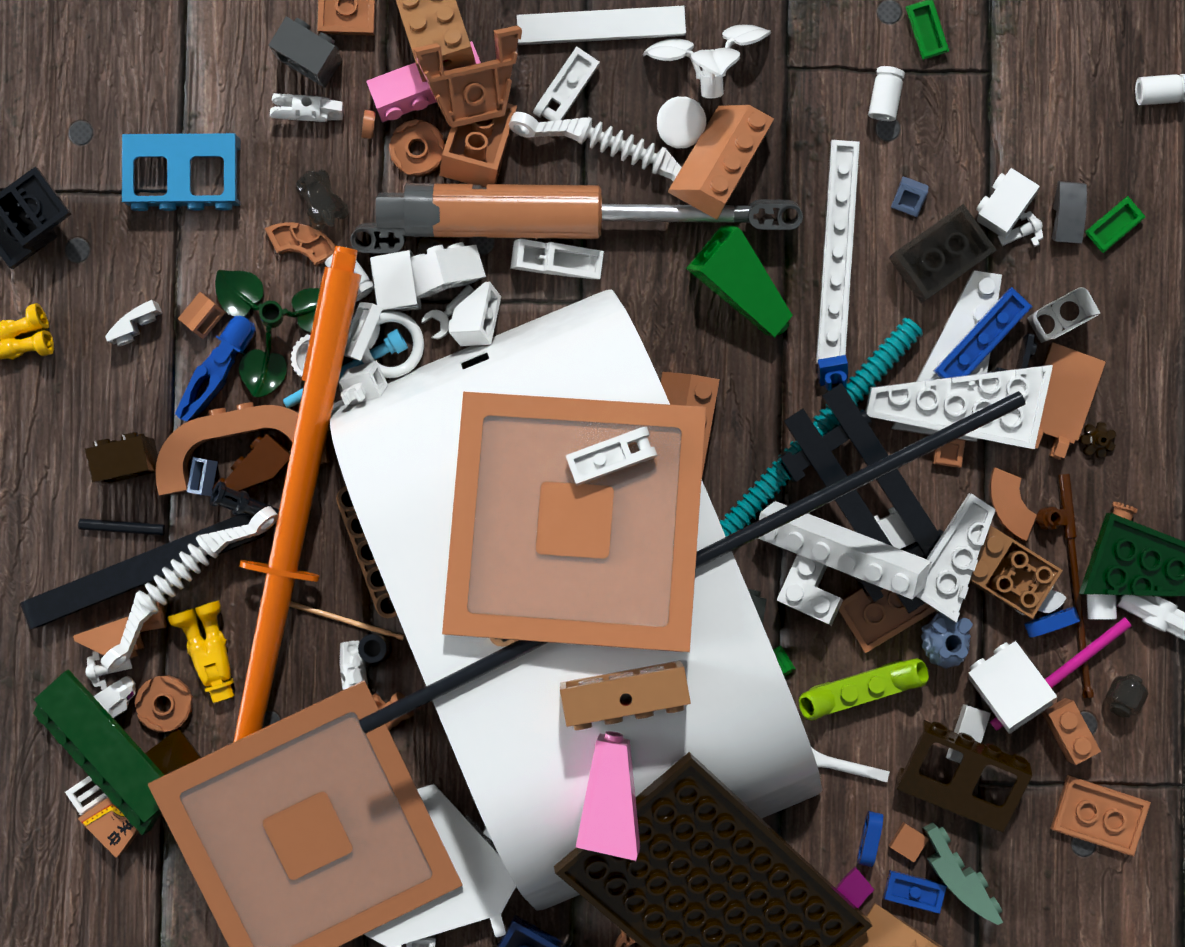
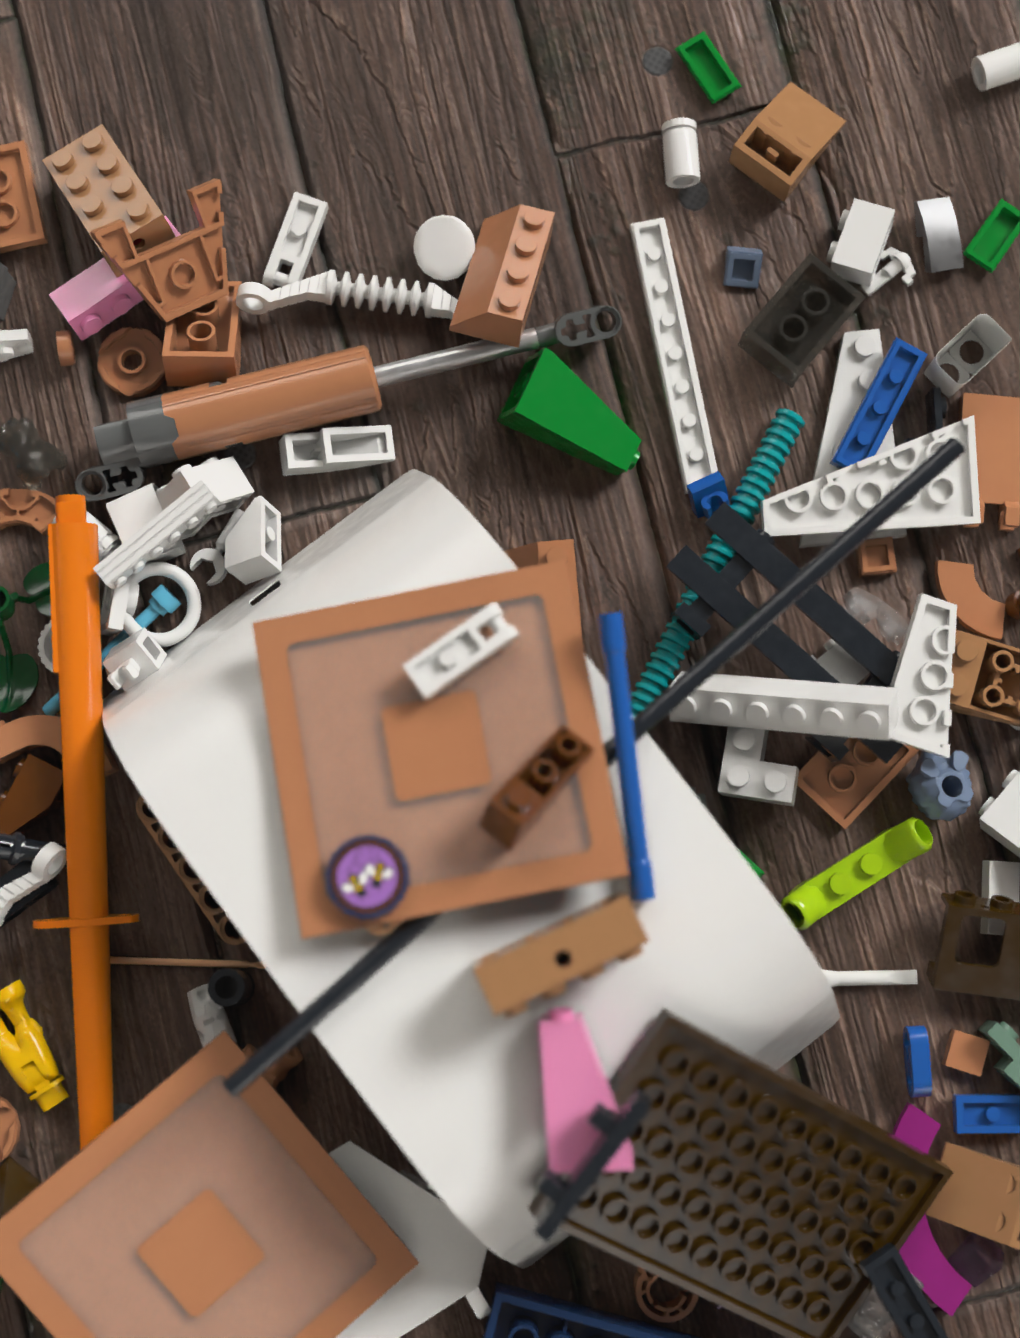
camera: 20 degrees left, 5 degrees down
(404, 296) = (157, 534): none -> white piece
(501, 603) = (368, 877): none -> tile
(585, 864) = (567, 1193): none -> black hinge
(602, 25) = (319, 161): white tile -> none
(639, 570) = (534, 787): none -> reddish brown slope
(712, 61) = (469, 152): white plant -> none
(723, 484) = (639, 863): none -> blue piece
(930, 490) = (865, 607): none -> clear slope
(972, 105) = (785, 140): none -> medium nougat slope

